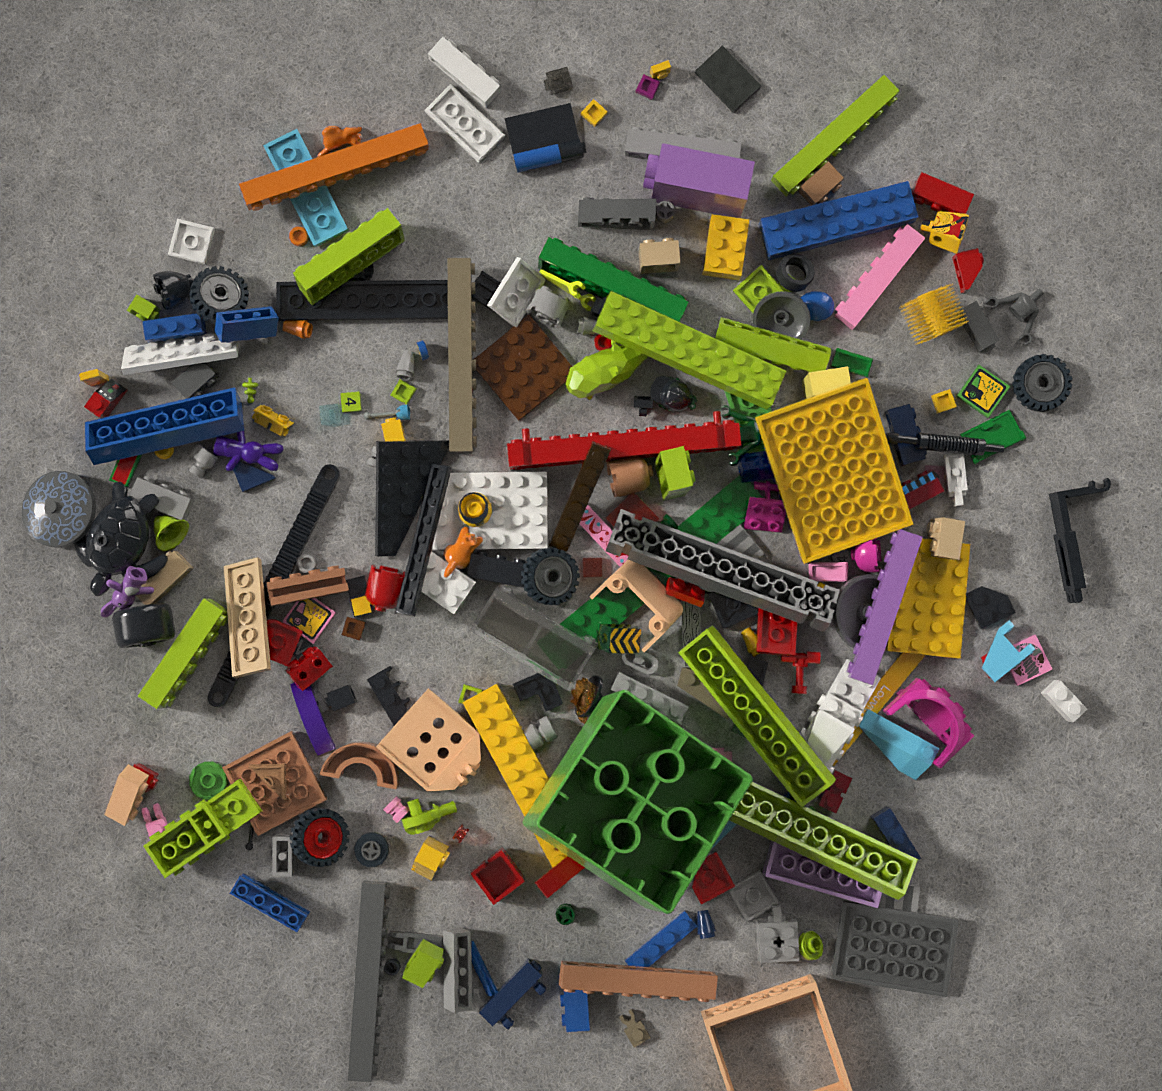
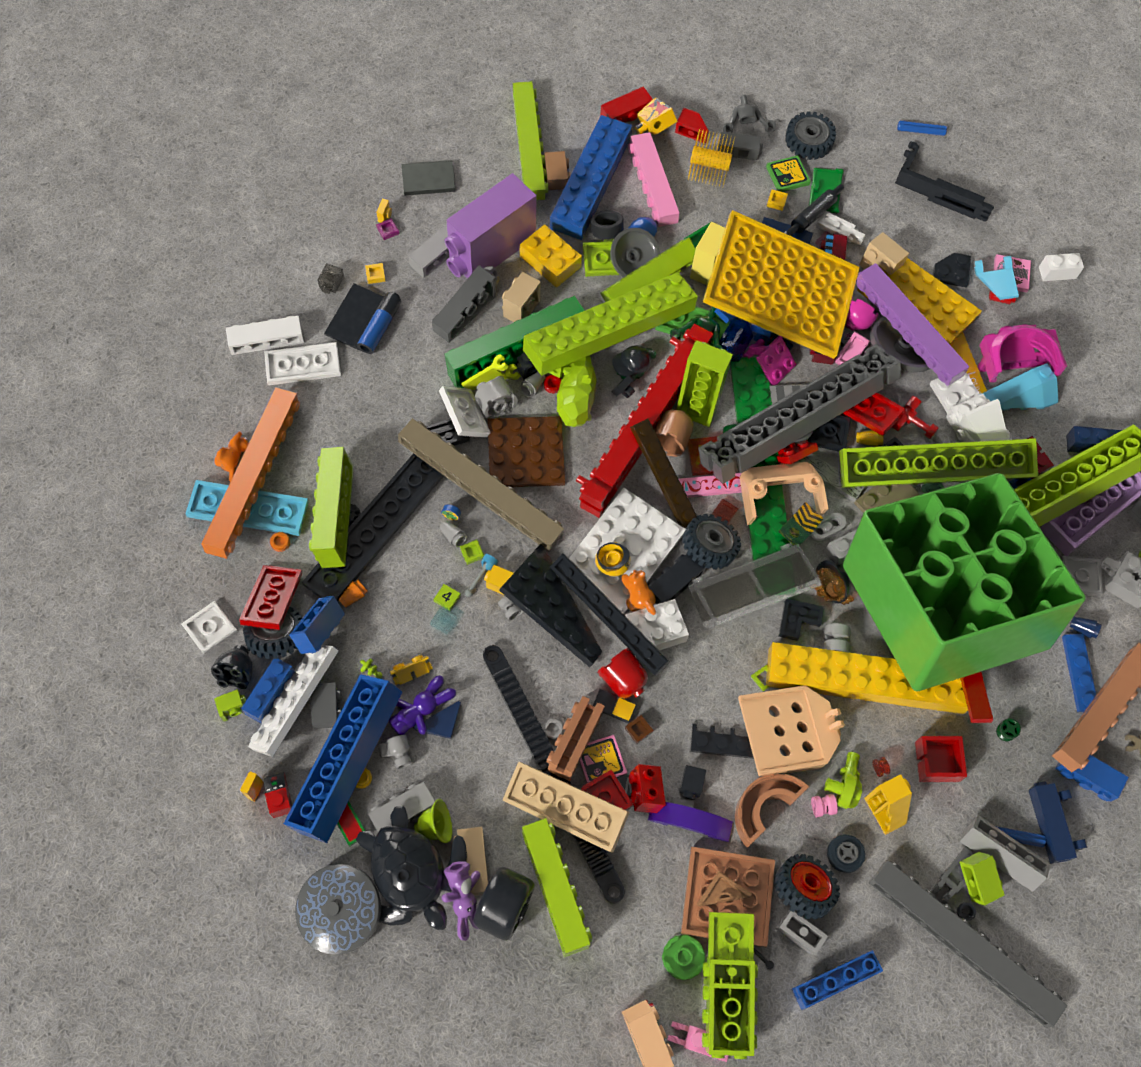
camera: 55 degrees left, 20 degrees down
(243, 270) = (271, 597): none -> plate
(1134, 478) = (922, 128): none -> blue axle

